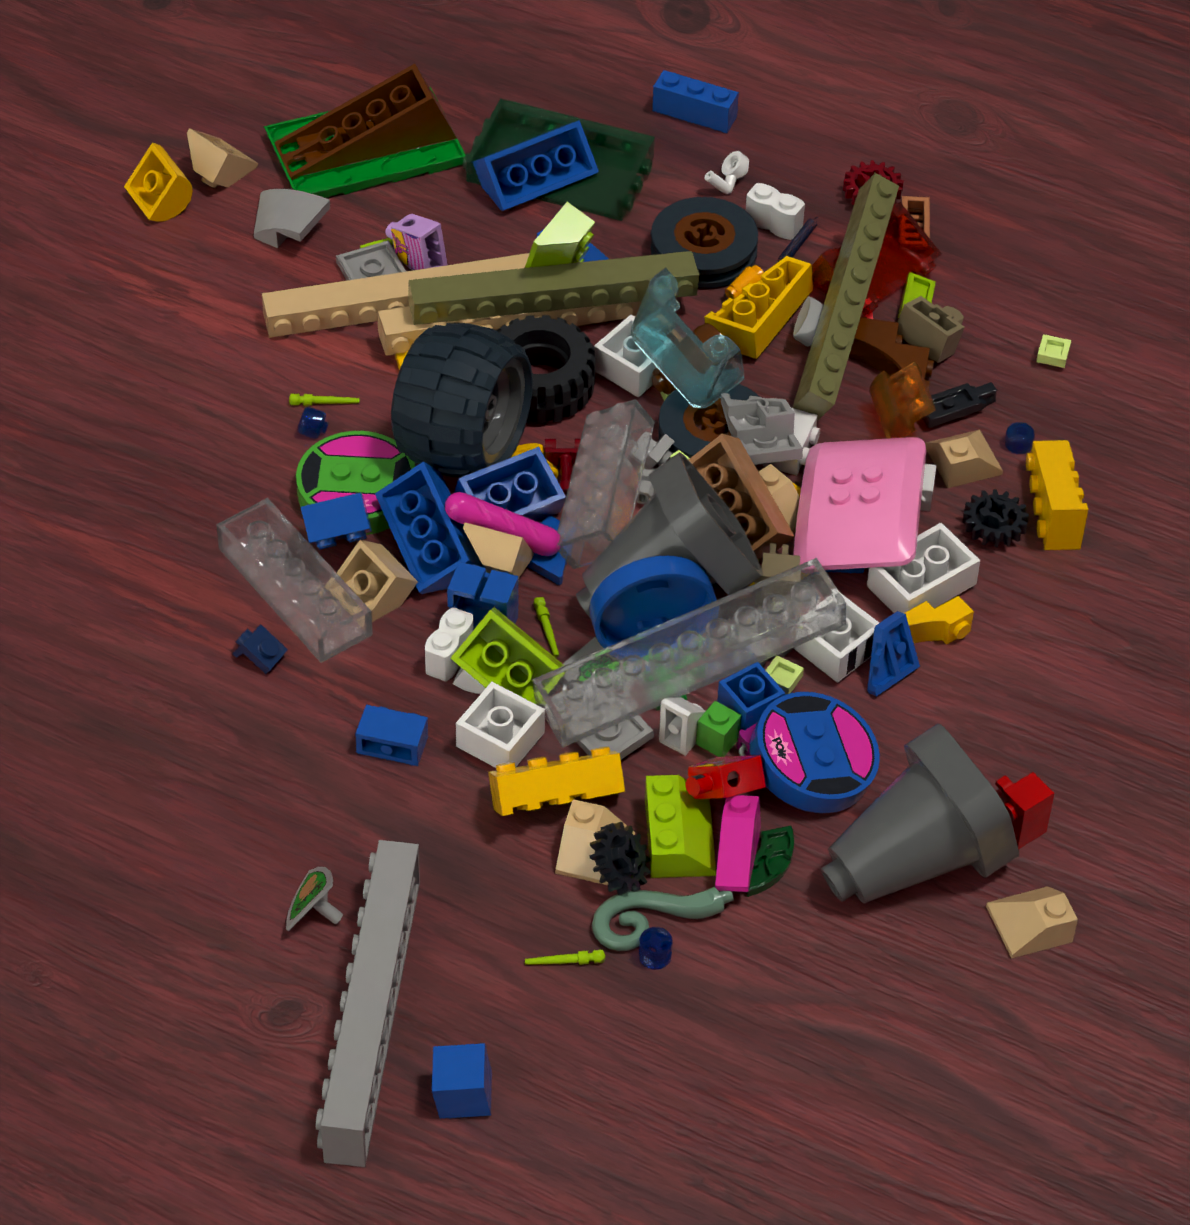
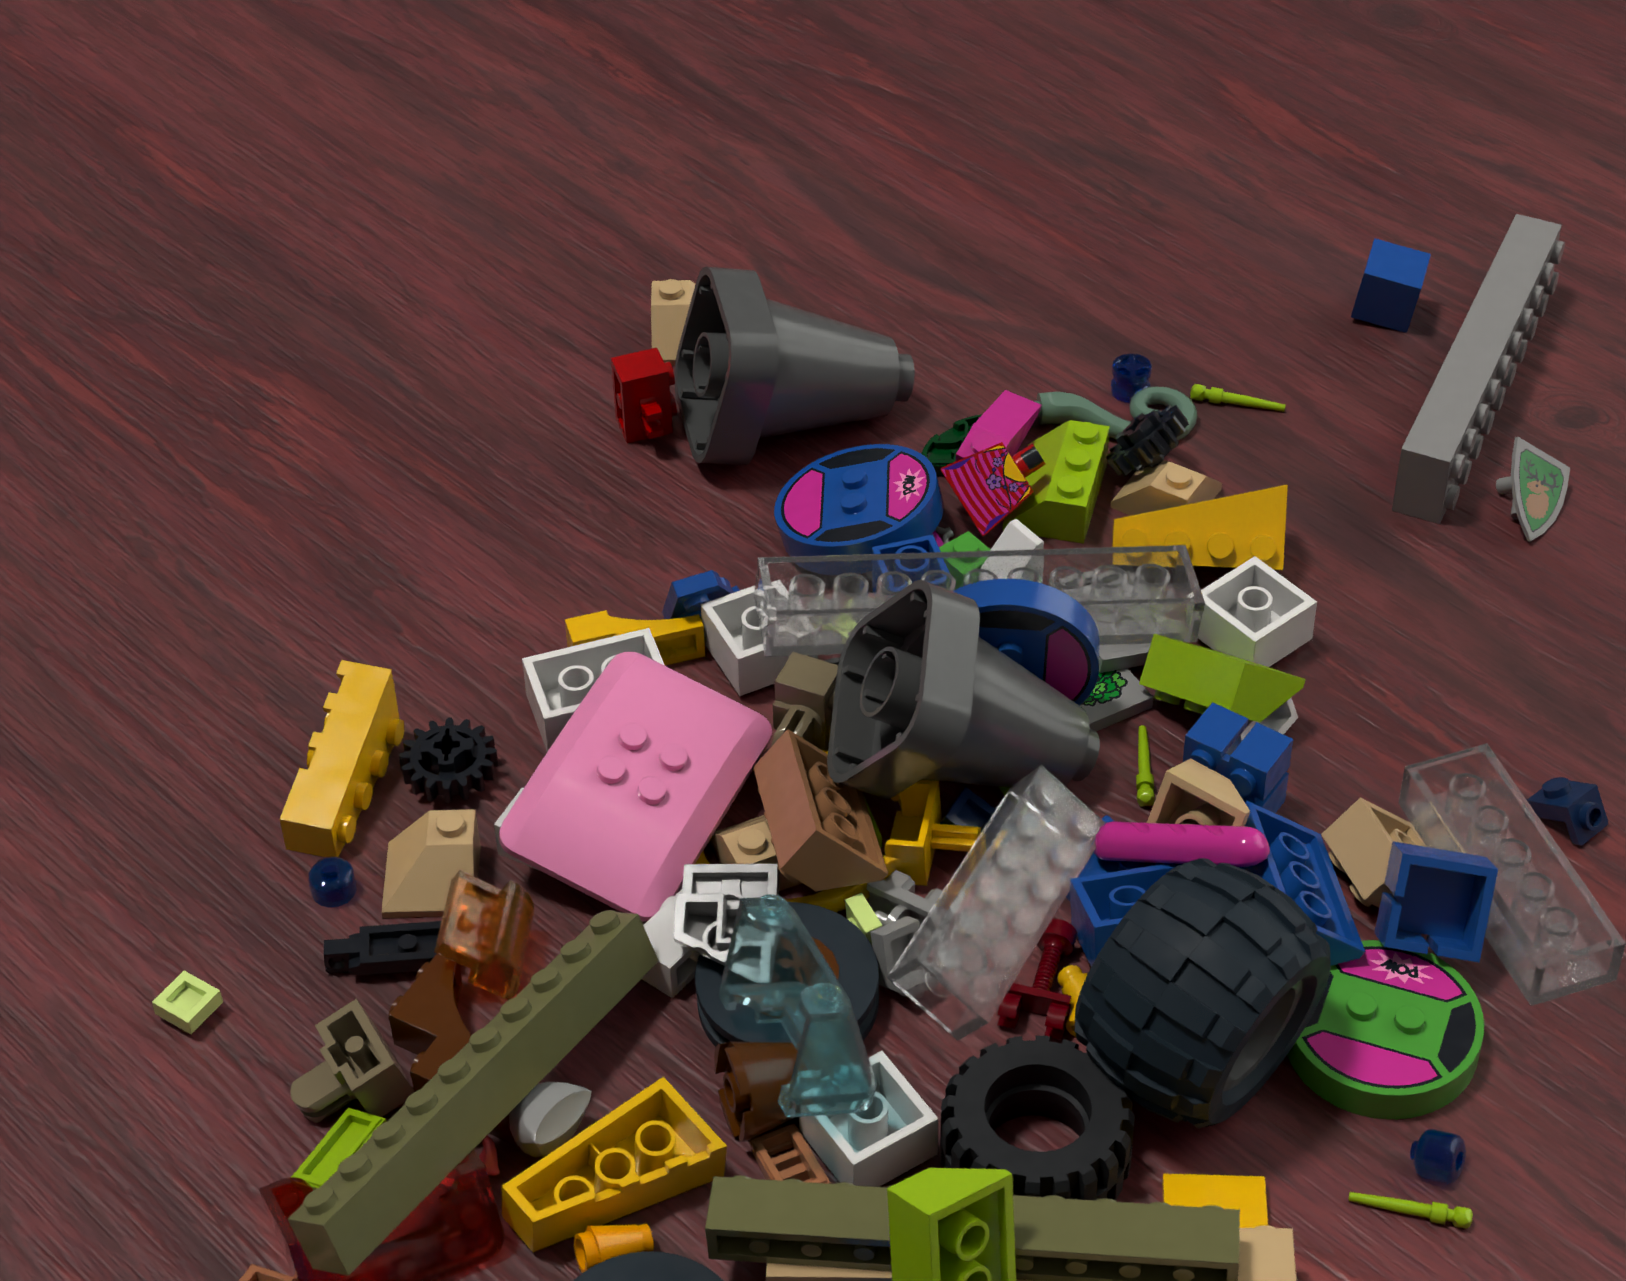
camera: 160 degrees left, 5 degrees down
(391, 735) = (1398, 653): blue brick -> none
(444, 642) = (1311, 728): white brick -> none

